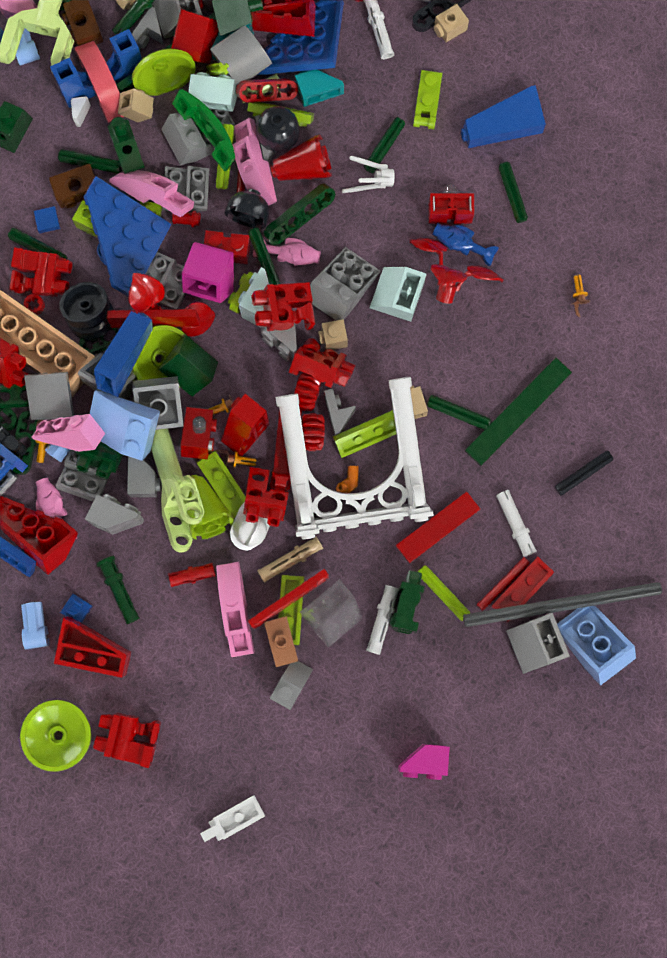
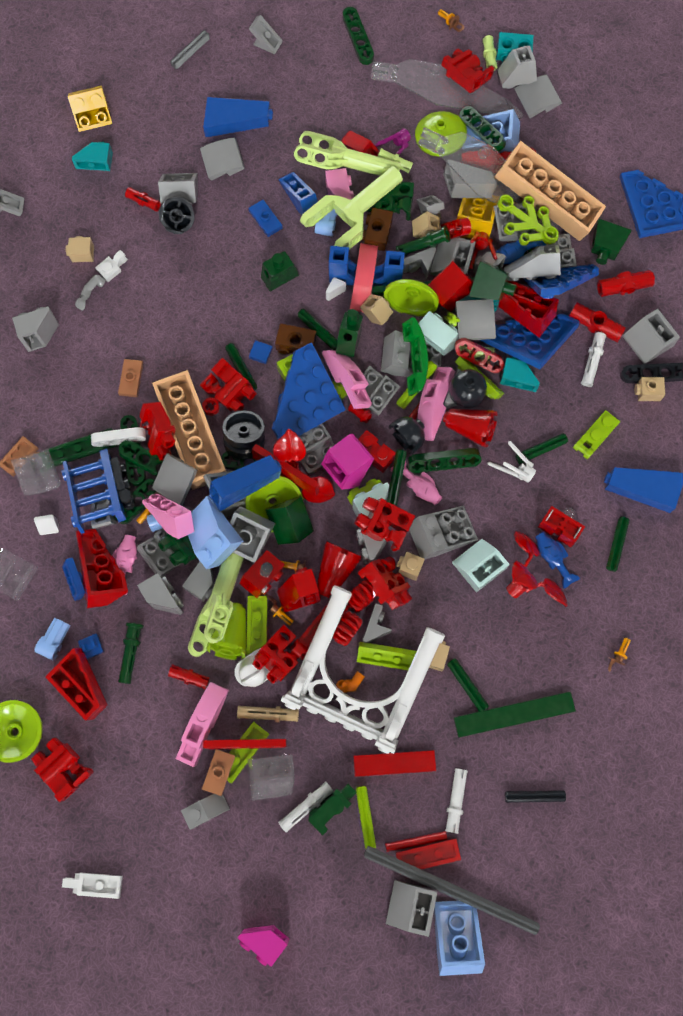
camera: 35 degrees right, 5 degrees down
(263, 380) = (335, 567): none -> red cone

